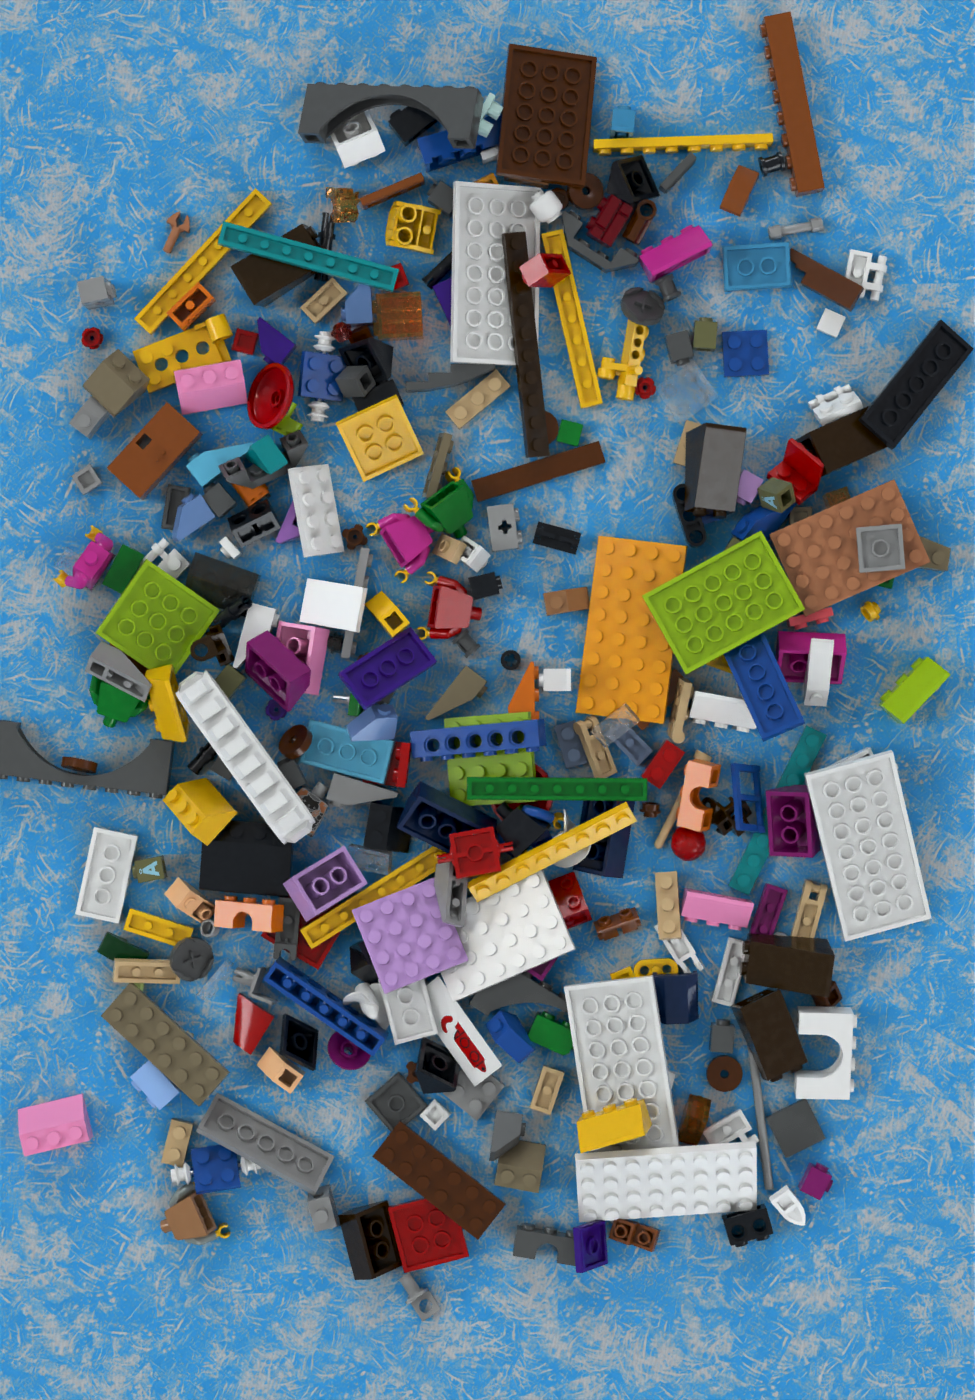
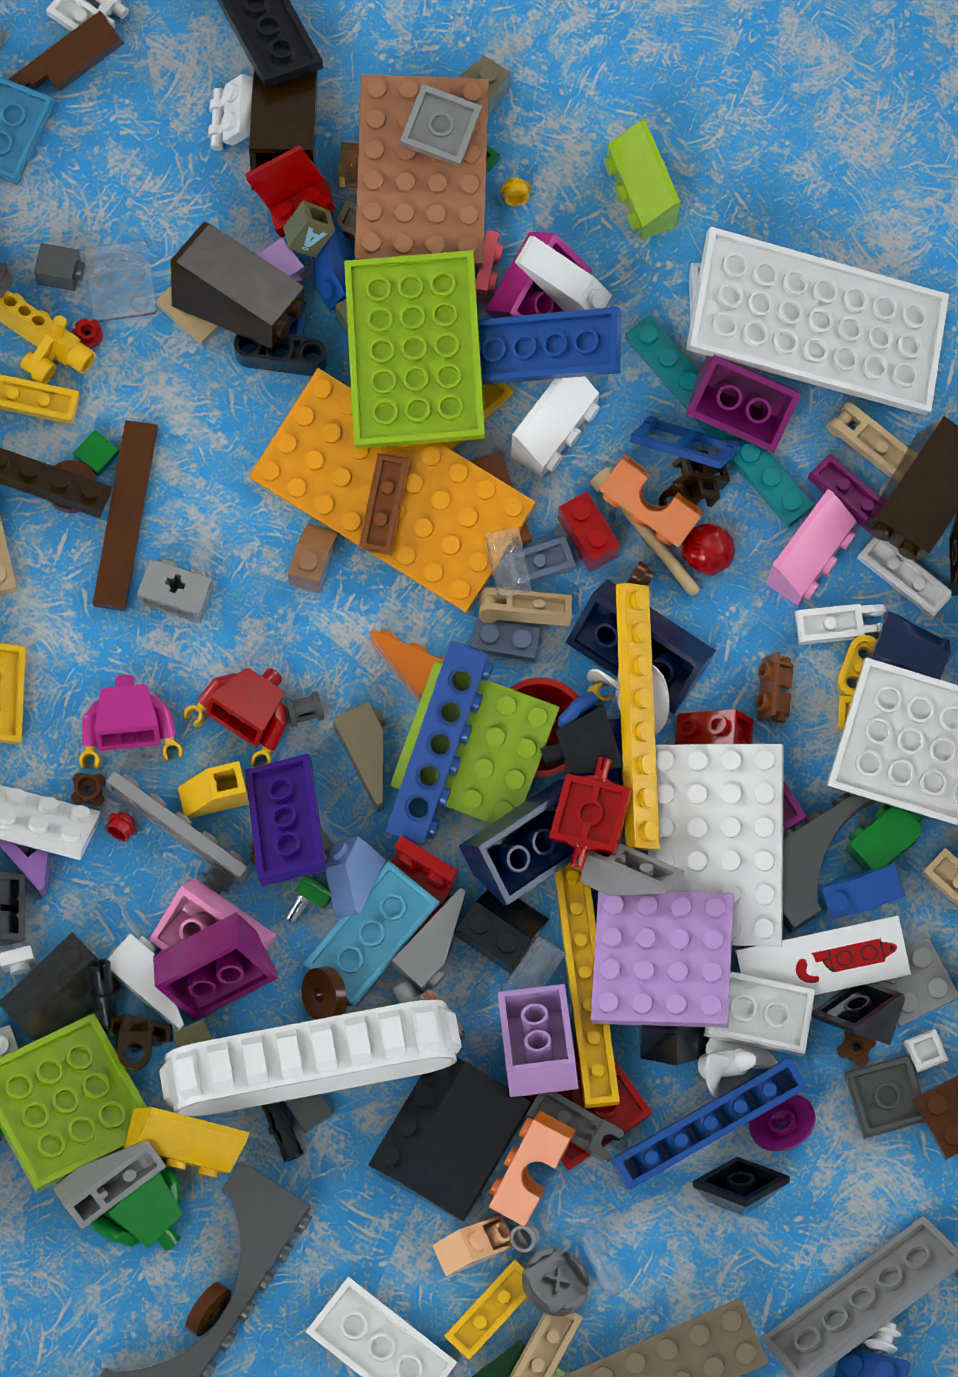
camera: 70 degrees left, 15 degrees down
(149, 869) = (402, 1281): olive brick -> none
(200, 808) = (352, 1163): yellow slope -> none
(250, 1023) = (685, 1245): red slope -> none
(254, 982) = (626, 1212): light grey bracket -> none
(280, 1070) = (768, 1230): light nougat slope -> none
(281, 713) = (267, 994): dark purple plate -> none
(333, 605) = (164, 854): white tile -> none
(341, 568) = (121, 826): none -> red plate
(438, 464) = (51, 636): dark tan plate -> none
(447, 508) = (112, 646): green torso -> none
(449, 548) = (167, 668): tan plate -> none
(474, 555) = (188, 643): white slope -> none
(485, 585) = (239, 648): black brick -> none
(504, 663) = (355, 654): black bush -> none
(555, 679) = (411, 611): white slope -> none
(556, 538) = (224, 530): black hinge -> none
(556, 788) = (555, 670): green tile -> none
(617, 630) = (384, 504): none -> dark orange tile
(668, 905) = (780, 609): tan plate -> none
(680, 710) = (528, 476): tan plate -> none
(704, 335) = (59, 227): olive brick -> none
(745, 353) = (109, 194): blue plate -> none
(830, 323) = (125, 77): white tile -> none

